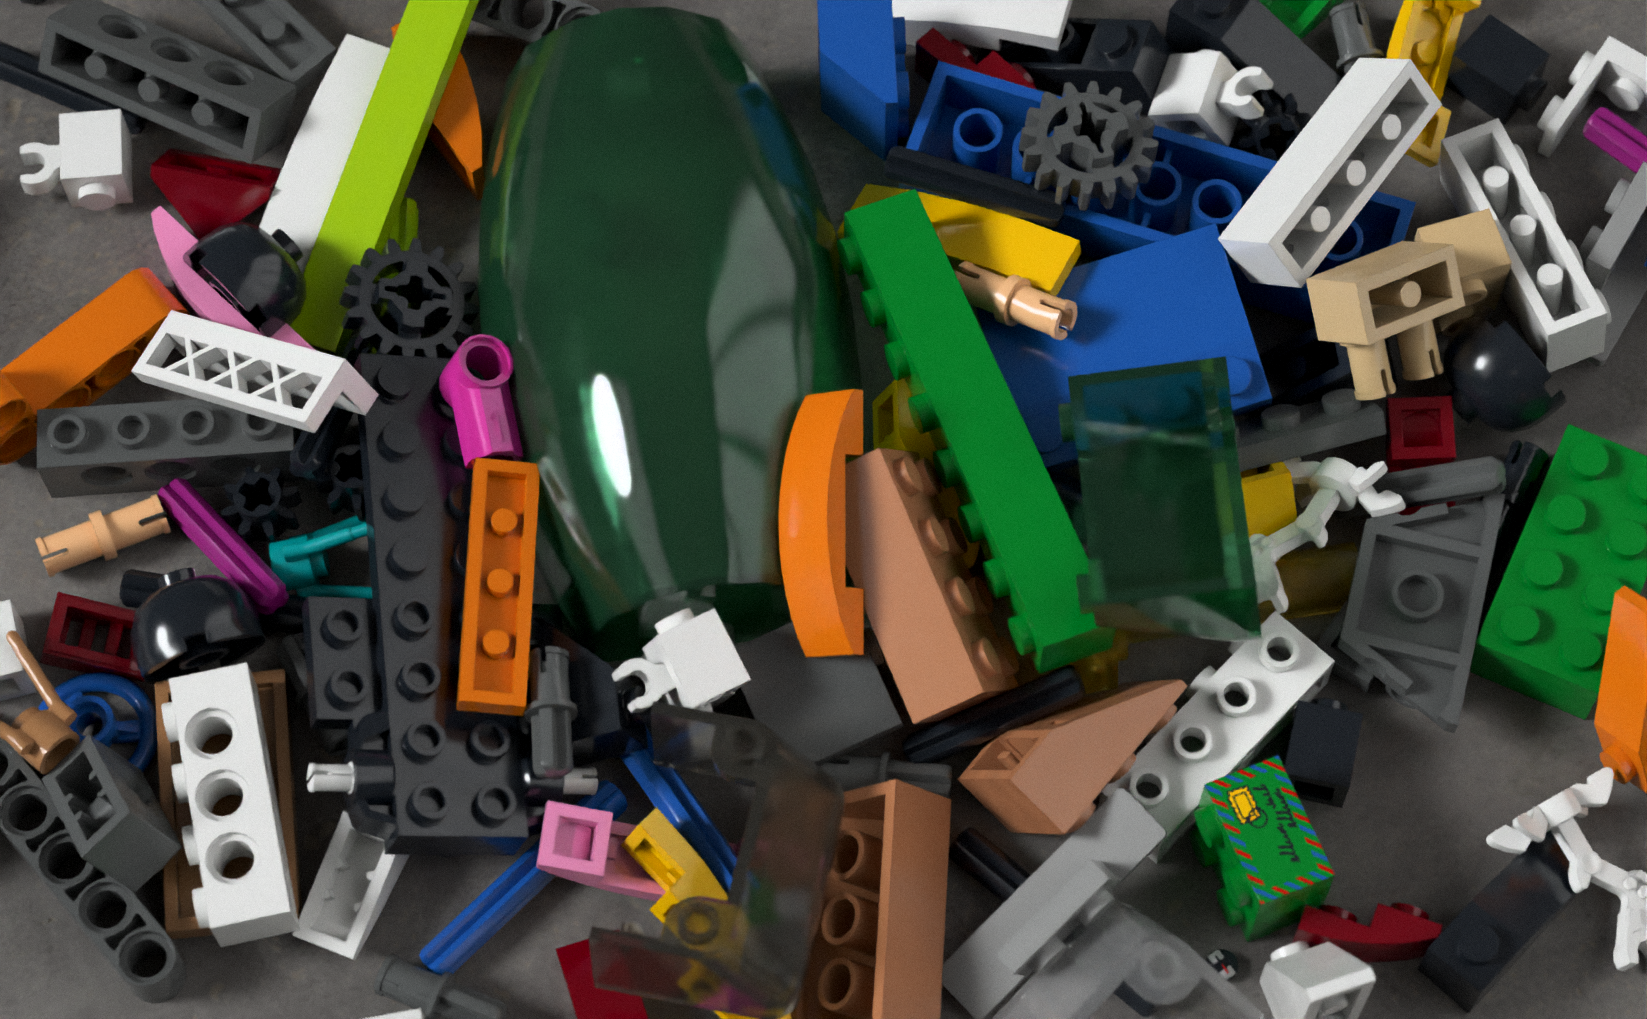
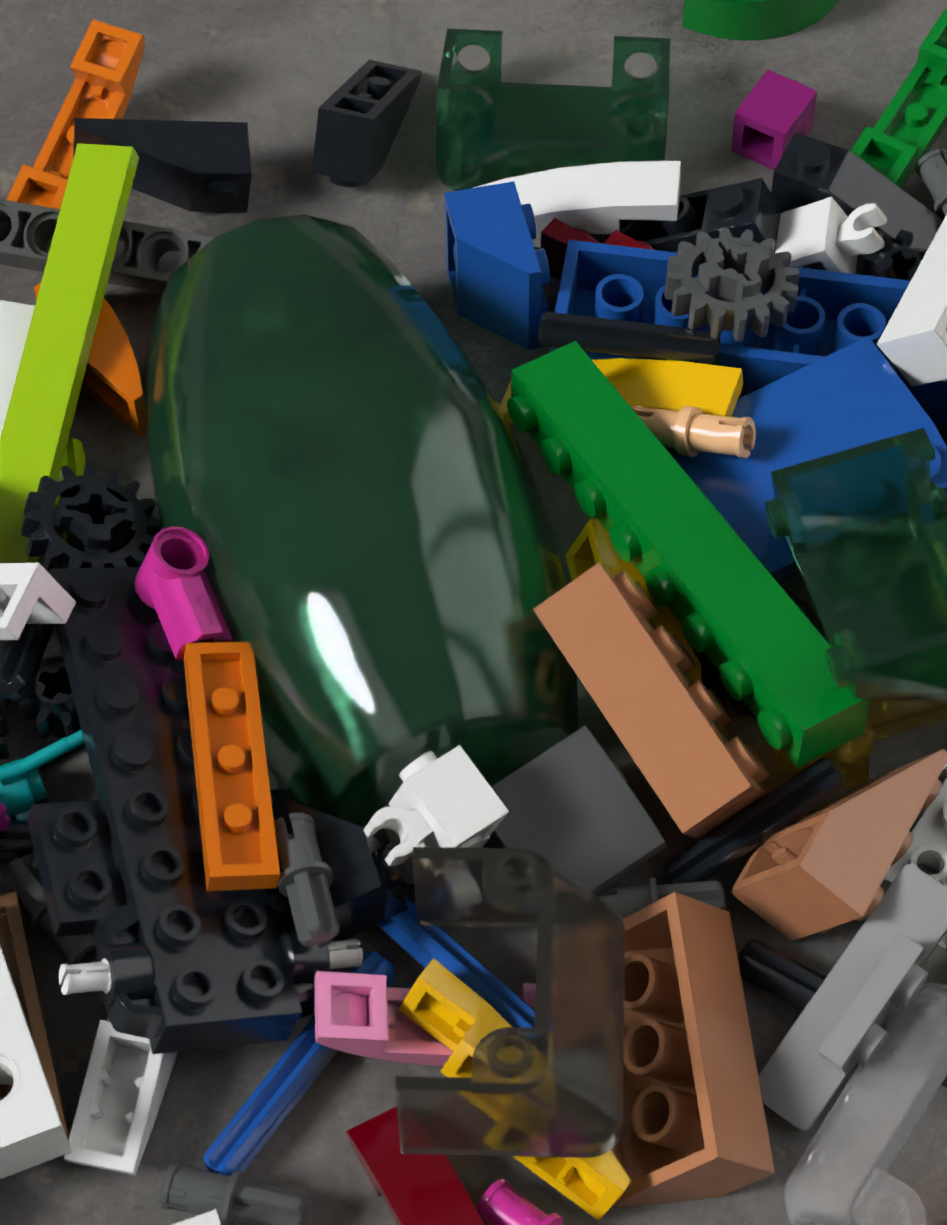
camera: 10 degrees left, 10 degrees down
(813, 524) = (547, 654): orange slope -> none

